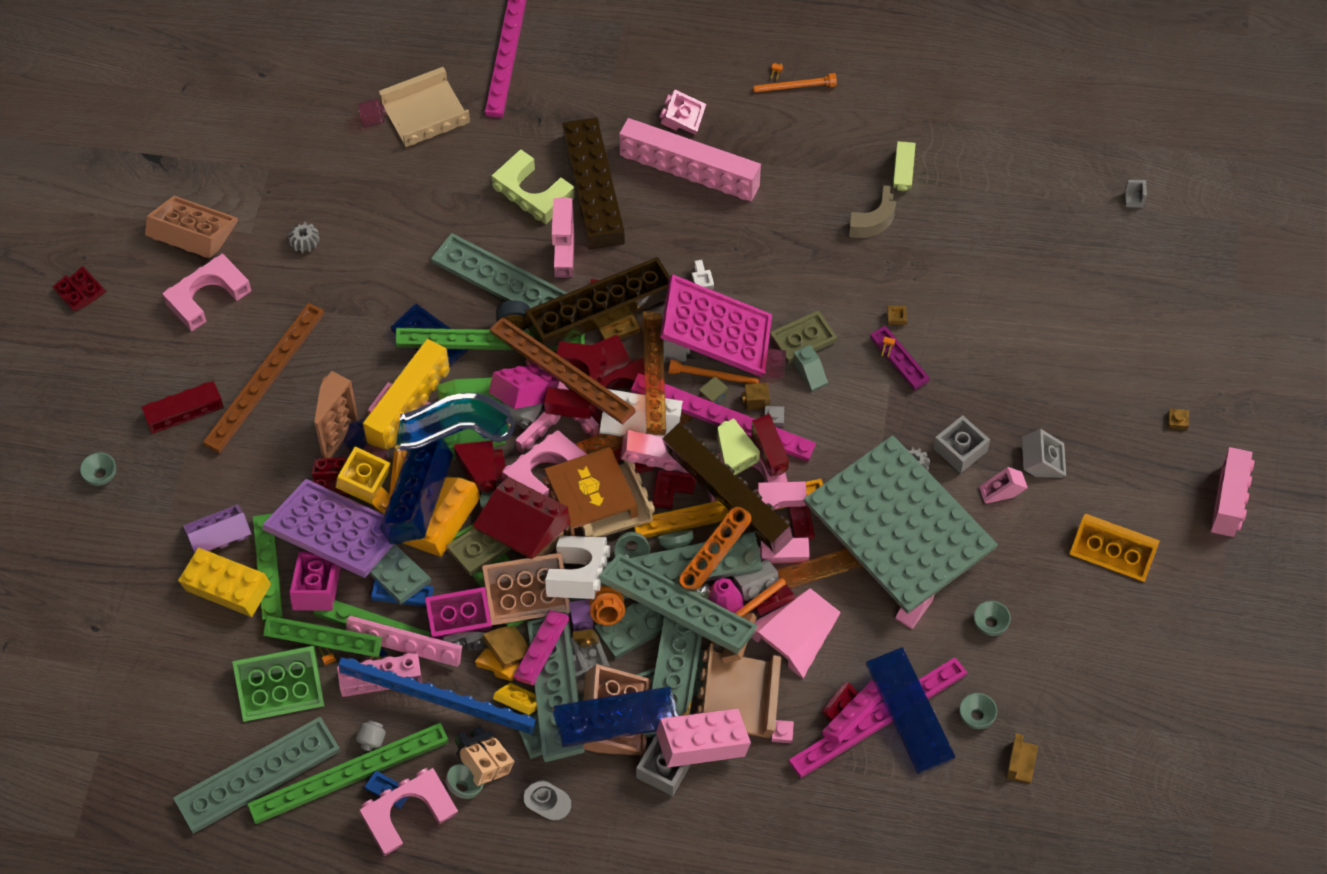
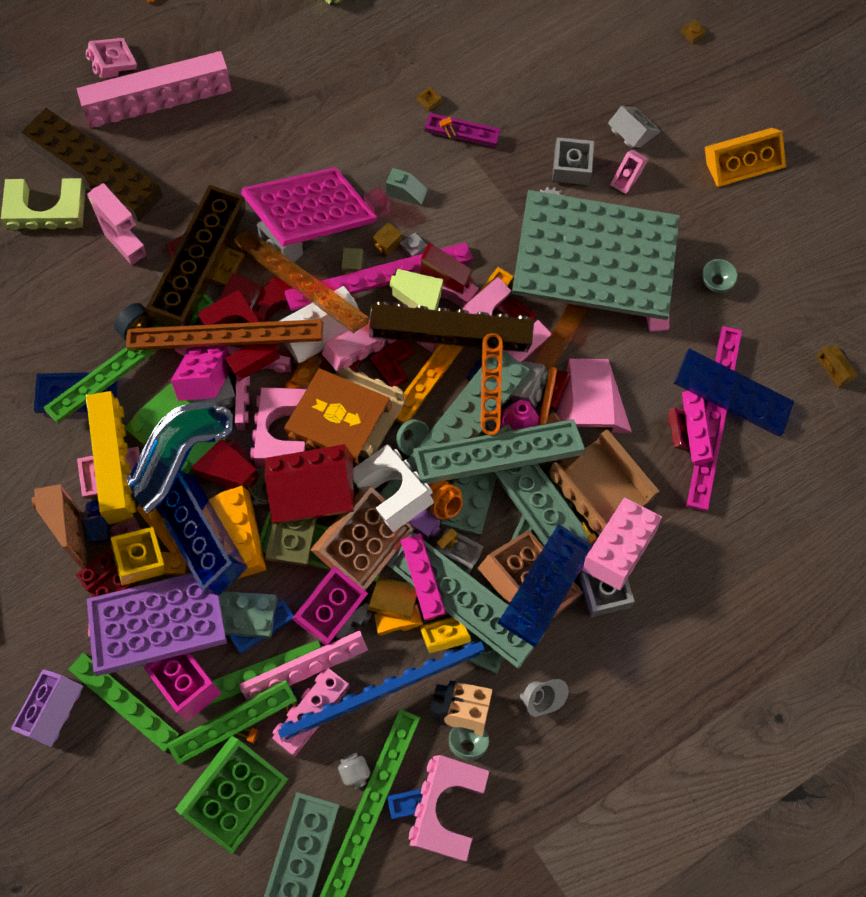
camera: 45 degrees left, 10 degrees up
(225, 582) = (101, 749): yellow brick -> none
(493, 273) = (82, 299): sand green plate -> none
(676, 539) = (438, 401): sand green piece -> none
(677, 367) = (305, 262): orange piece -> none
(701, 276) = (253, 176): white plate -> none
(783, 732) = (662, 485): bright pink plate -> none
(805, 331) = (375, 165): olive plate -> none
(874, 222) = (340, 44): dark tan arch -> none
(981, 703) = (782, 347): sand green piece -> none
(1232, 492) = (785, 55): bright pink brick -> none

